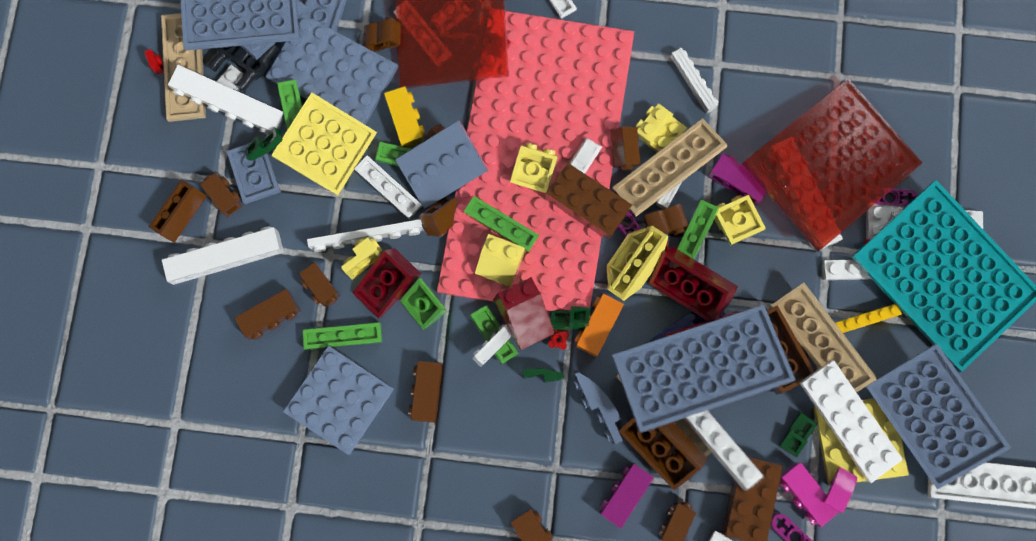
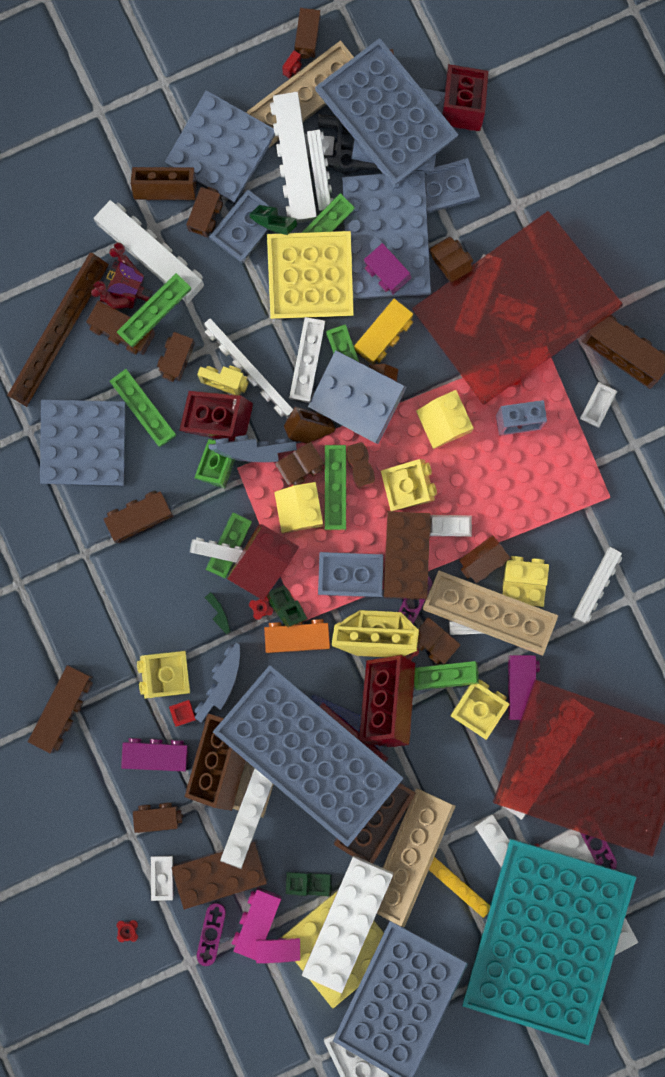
camera: 60 degrees right, 5 degrees up
(138, 34) = (307, 32): none -> reddish brown brick
(179, 149) = (221, 146): none -> sand blue plate
(233, 289) = (122, 283): none -> dark red torso
(236, 365) = (57, 330): none -> reddish brown plate
(245, 86) = (319, 168): none -> white piece
(272, 277) = (154, 310): none -> bright green plate
(359, 82) = (387, 269): none -> magenta piece
(431, 268) = (250, 450): none -> sand blue slope
(466, 239) = (300, 464): none -> reddish brown brick
(501, 111) = (445, 419): none -> light yellow slope
(501, 195) = (362, 471): none -> reddish brown brick
(537, 49) = (529, 415): none -> sand blue window
(565, 448) = (163, 674): none -> light yellow plate
(576, 253) = (350, 574): none -> sand blue plate
(604, 452) = (182, 713): none -> red plate

